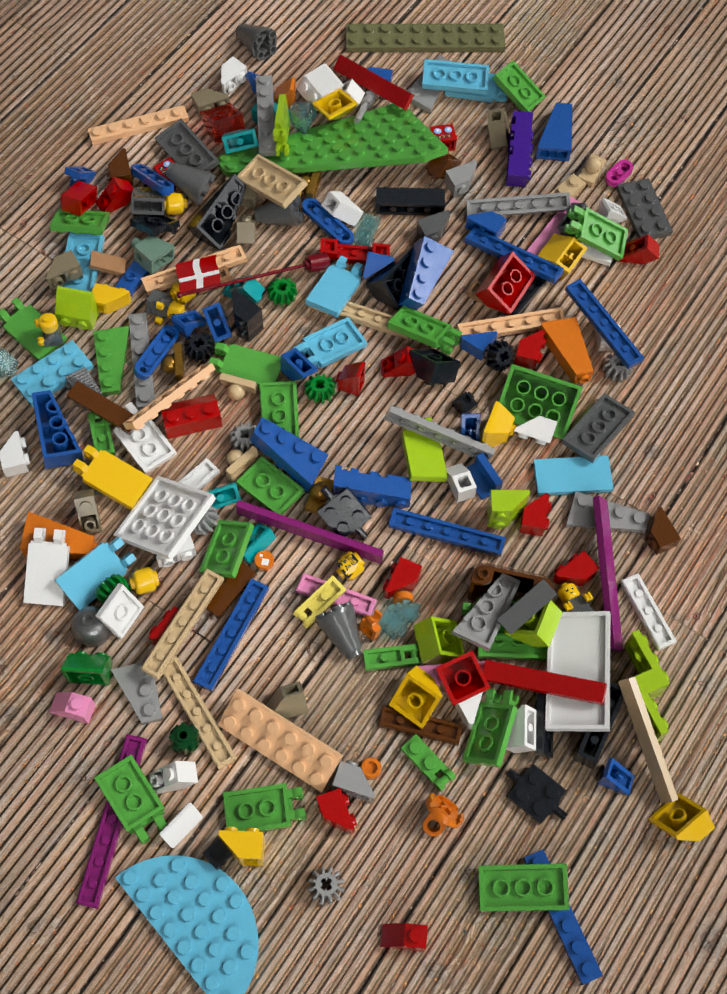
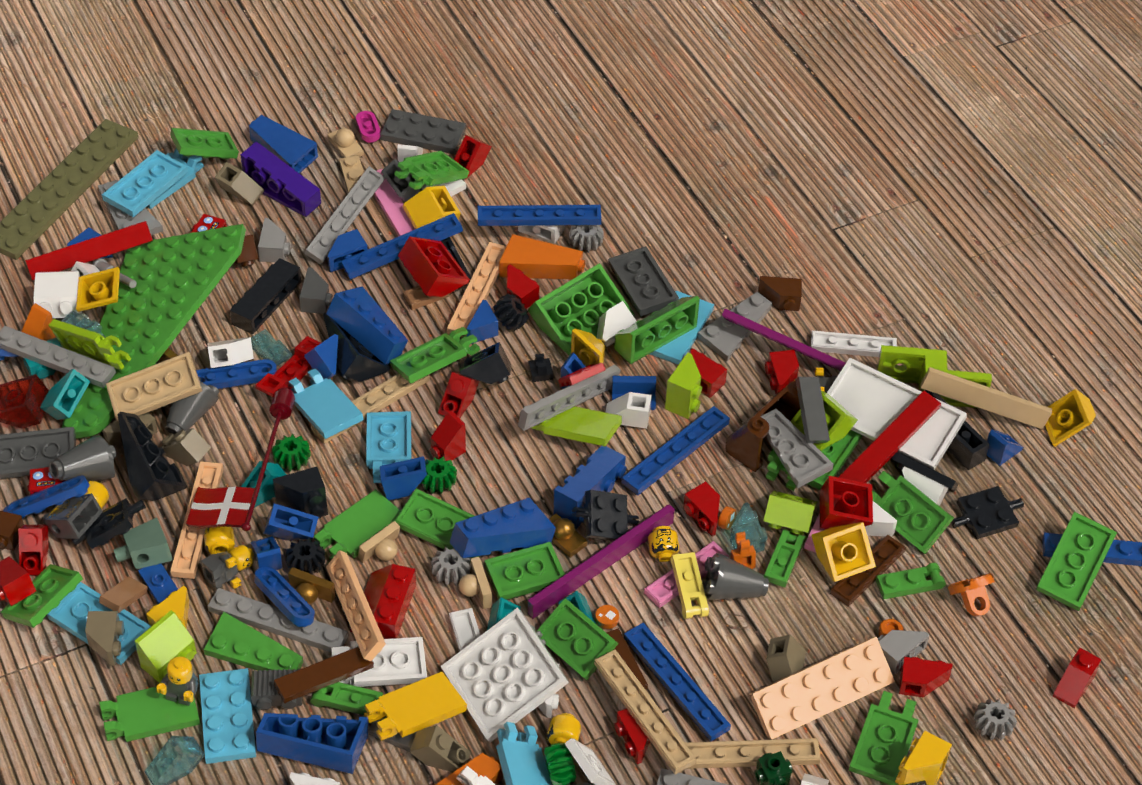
camera: 60 degrees left, 15 degrees down
(464, 430) = (581, 374): none -> tile
(550, 460) = (657, 329): none -> bright green slope

